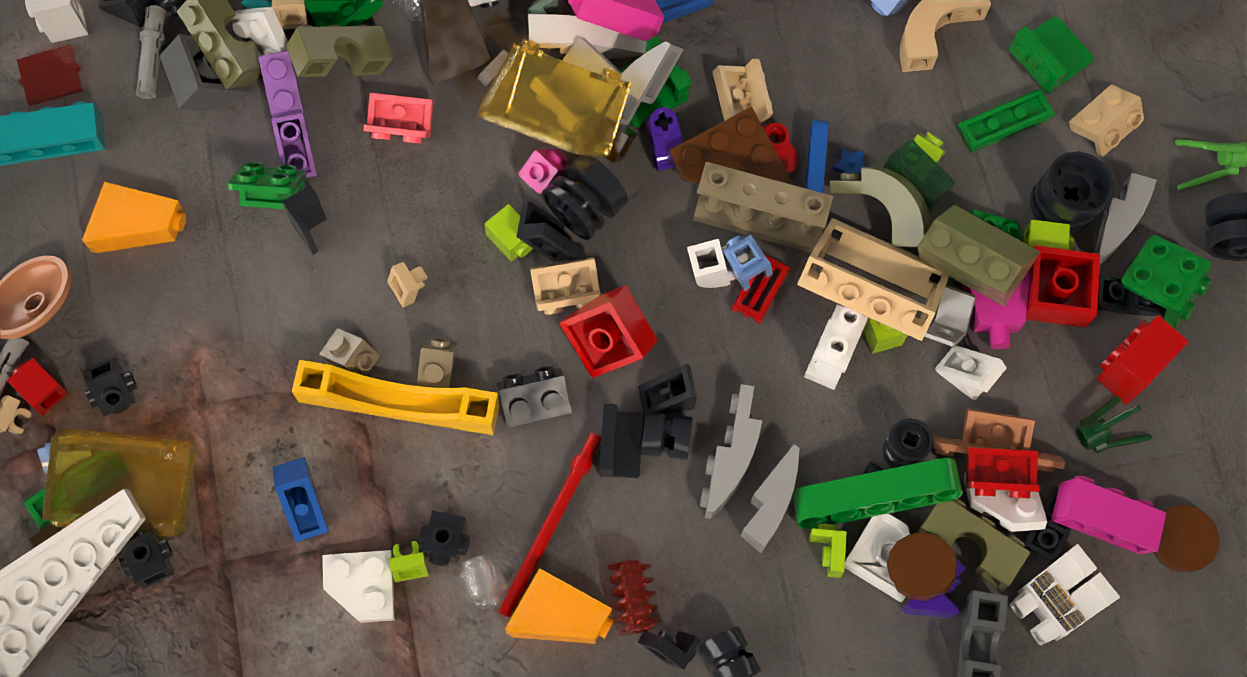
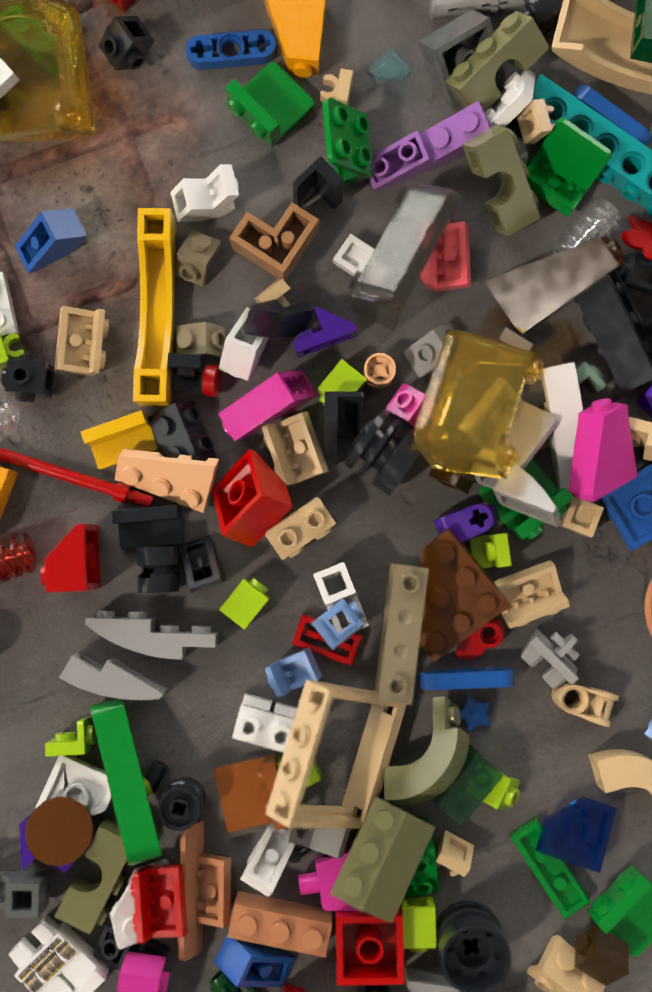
camera: 85 degrees right, 15 degrees up
(126, 311) = (220, 40): none -> blue beam
(195, 142) = (389, 68): none -> clear light blue tile
(205, 258) = (269, 103): none -> green bracket
(209, 186) = (341, 86): none -> tan tile
(289, 329) = (206, 198): none -> white brick
(358, 272) = (276, 248): none -> medium nougat brick
(384, 200) = (353, 255): none -> white plate
(397, 141) = (403, 252): none -> clear smoke windscreen
(414, 479) = (81, 341): none -> tan bracket
(432, 278) = (276, 321): none -> black slope
(450, 237) = (332, 332): none -> dark purple slope
(450, 316) = (241, 350): none -> white slope
(468, 375) = (186, 372): none -> black bracket
(480, 356) = (211, 380): none -> red tile
(490, 146) = (426, 351): none -> light grey bracket
(501, 189) = (382, 366): none -> light nougat wheel
(517, 306) = (267, 403): none -> dark pink slope
(526, 458) = (112, 437): none -> yellow panel
(575, 410) = (174, 479): none -> light nougat wing
(647, 512) = (74, 562): none -> red slope
(648, 288) = (300, 528): none -> tan bracket
(677, 33) = (581, 517): none -> tan tile
(695, 116) = (491, 550): none -> lime bracket
(713, 356) = (245, 602): none -> lime brick
(788, 320) = (292, 672): none -> medium blue bracket
(818, 79) = (561, 667): none -> light grey hips
(852, 60) = (589, 703): none -> tan piece
(905, 376) = (246, 792): none -> dark orange bracket
(974, 87) = (578, 833): none -> clear blue plate
(984, 198) = (454, 854): none -> tan tile
(1036, 367) = (280, 924): none -> nougat brick
(1070, 402) = (253, 964): none -> blue slope
(1088, 83) = (601, 955): none -> dark brown brick

